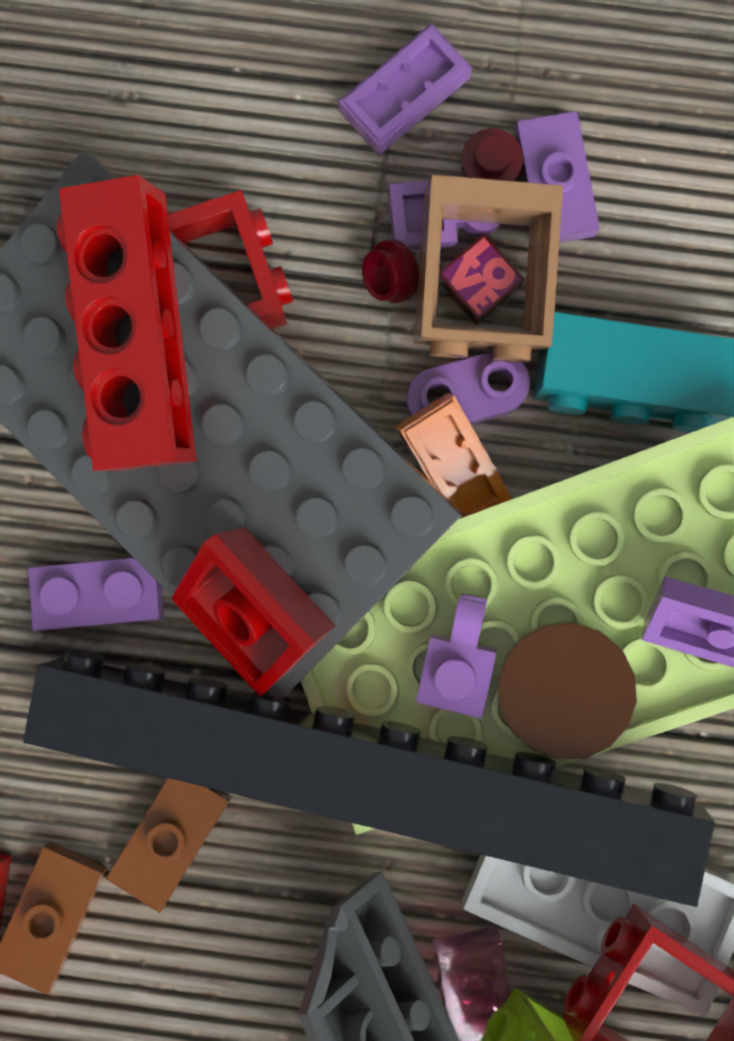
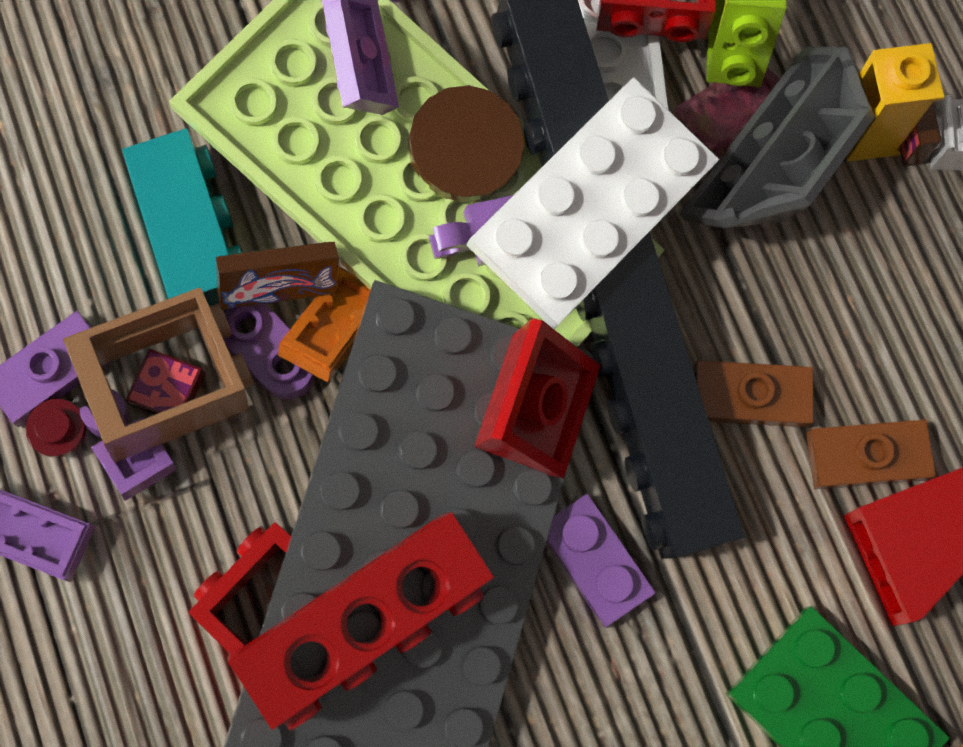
camera: 120 degrees left, 10 degrees down
(390, 272) = (196, 457): dark red plate -> none
(422, 787) = (592, 202): none -> white plate
(525, 426) = (277, 275): none -> reddish brown tile

